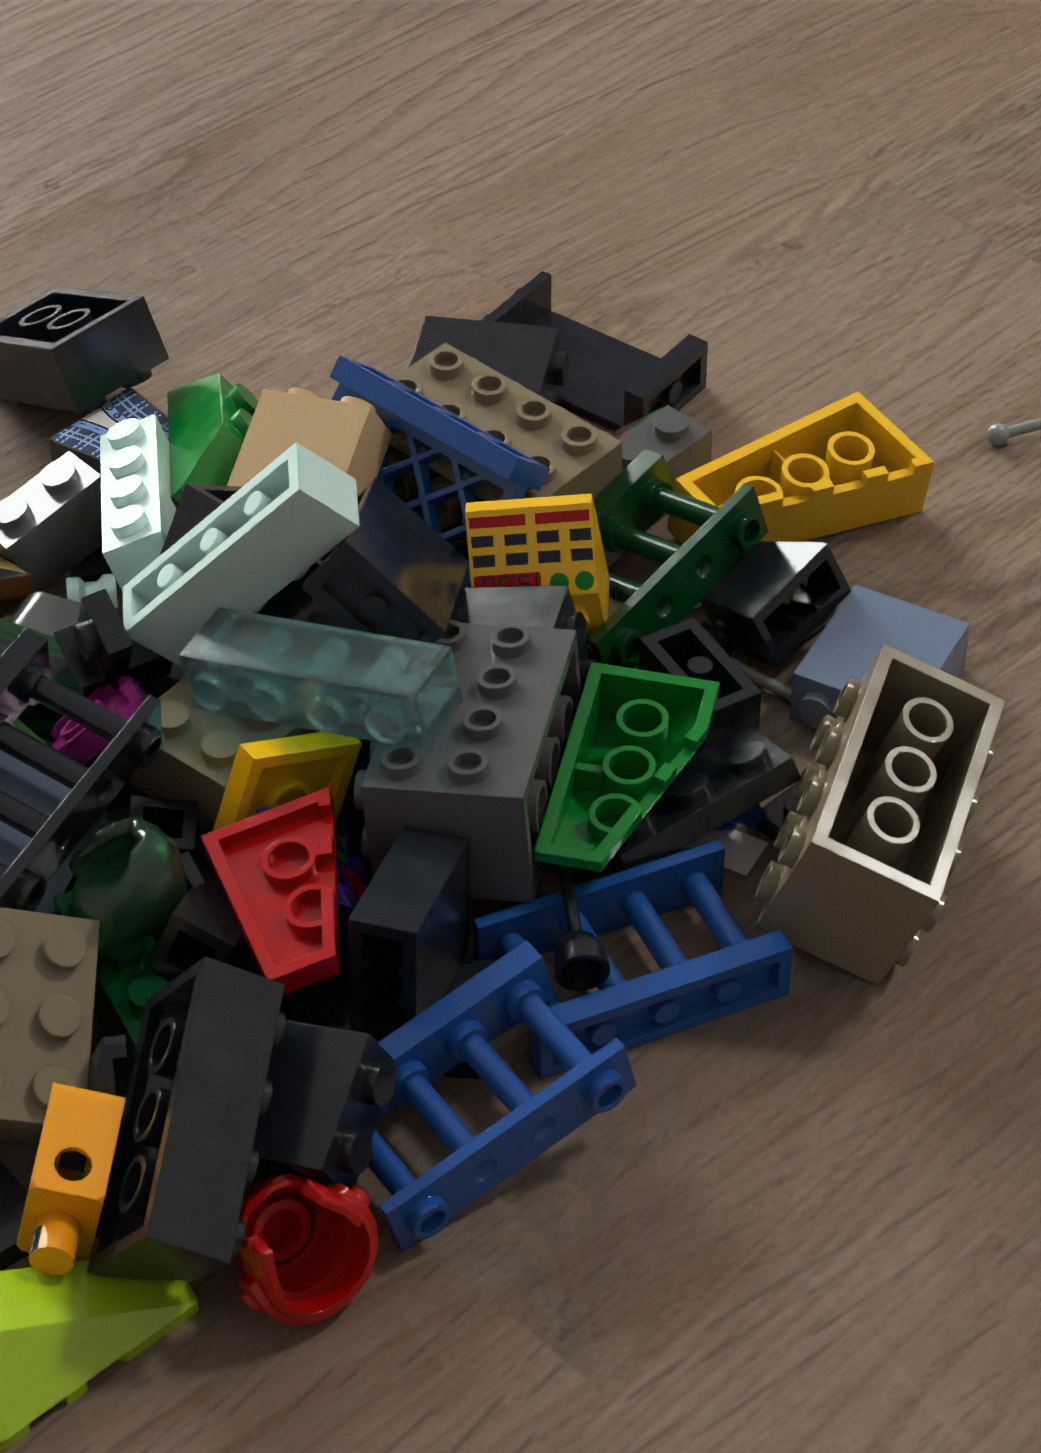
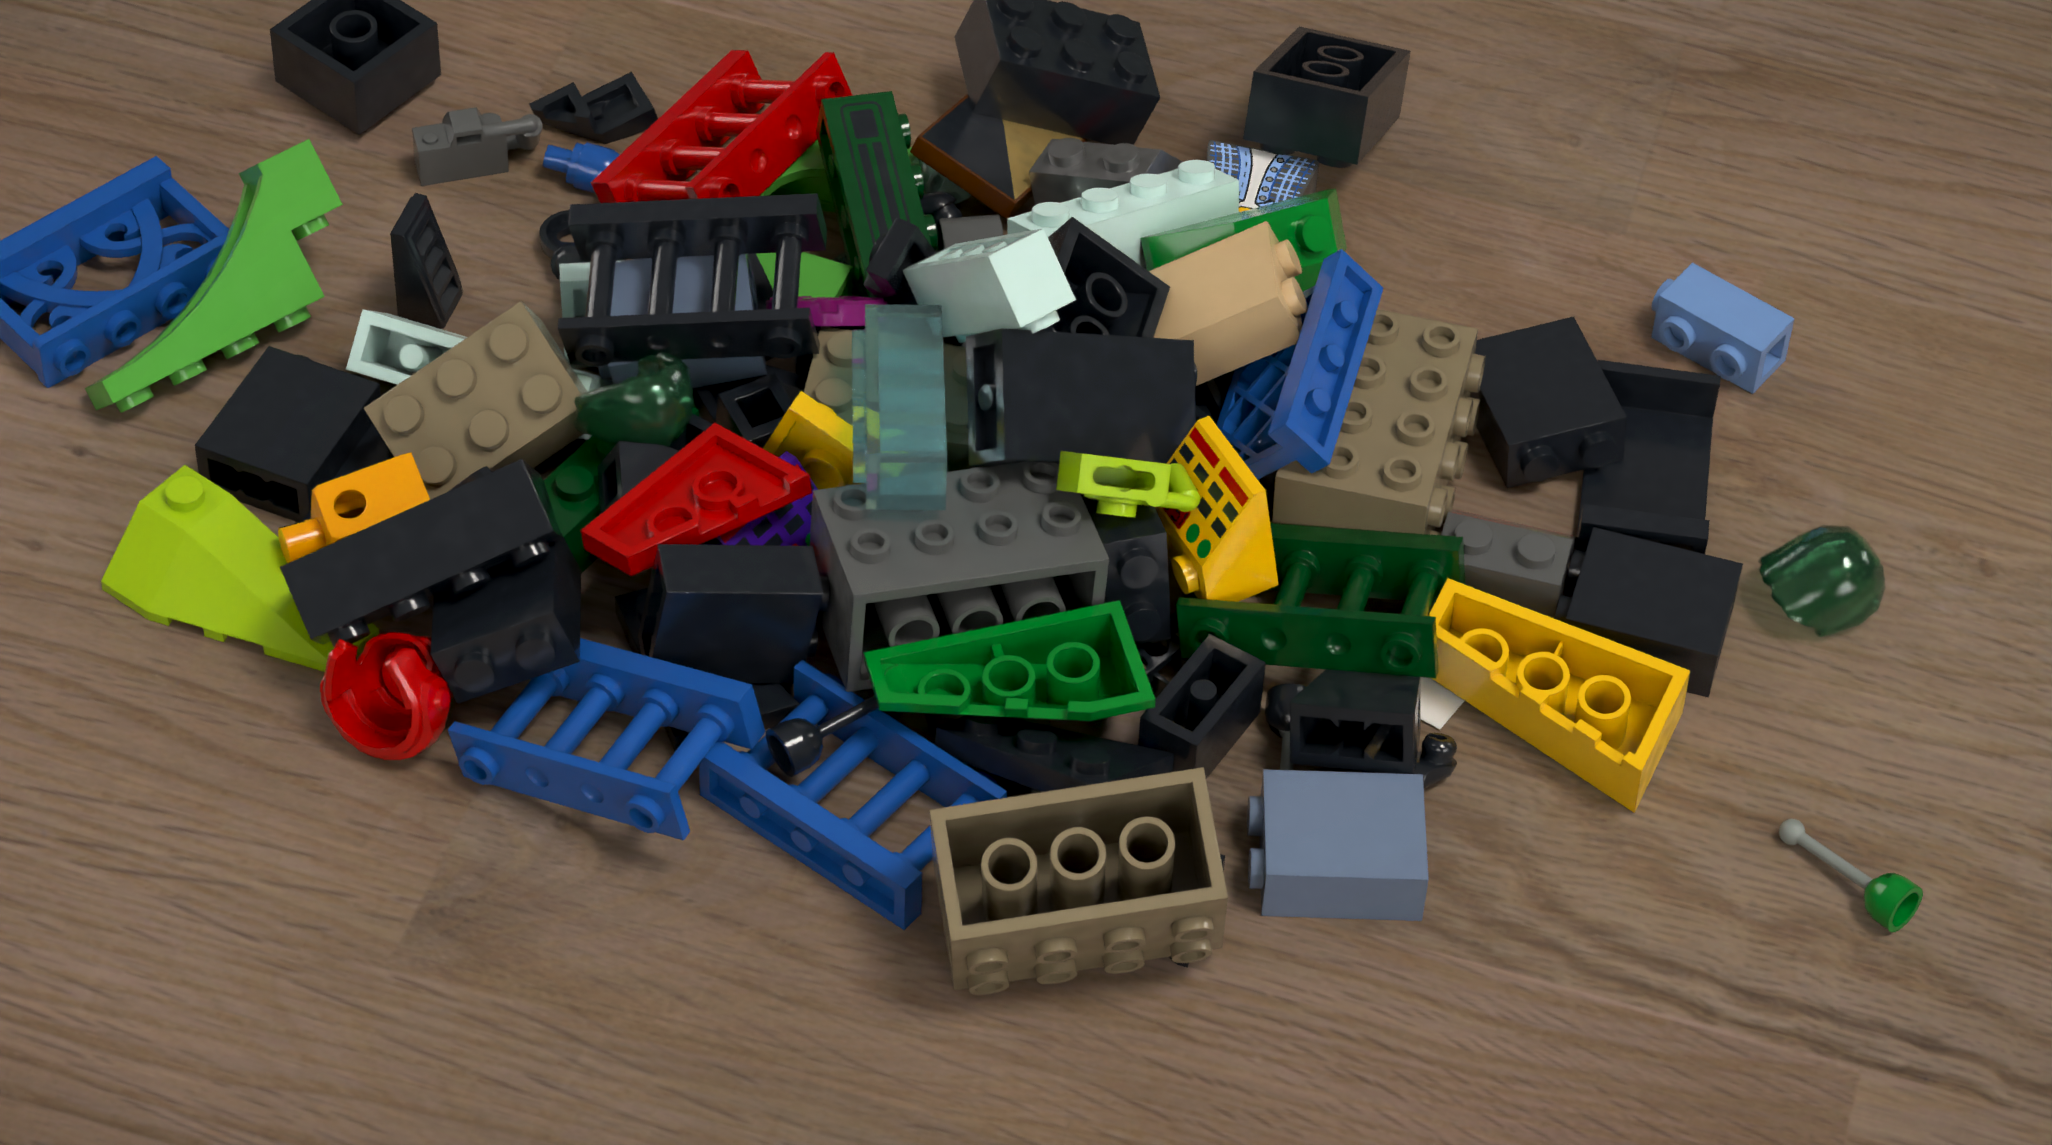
camera: 60 degrees right, 5 degrees up
(471, 262) = (1721, 327): none -> medium blue brick
(507, 581) = (1125, 483): none -> lime piece
(745, 394) = (1654, 600): none -> black brick
(769, 305) = (1825, 578): none -> clear green hair

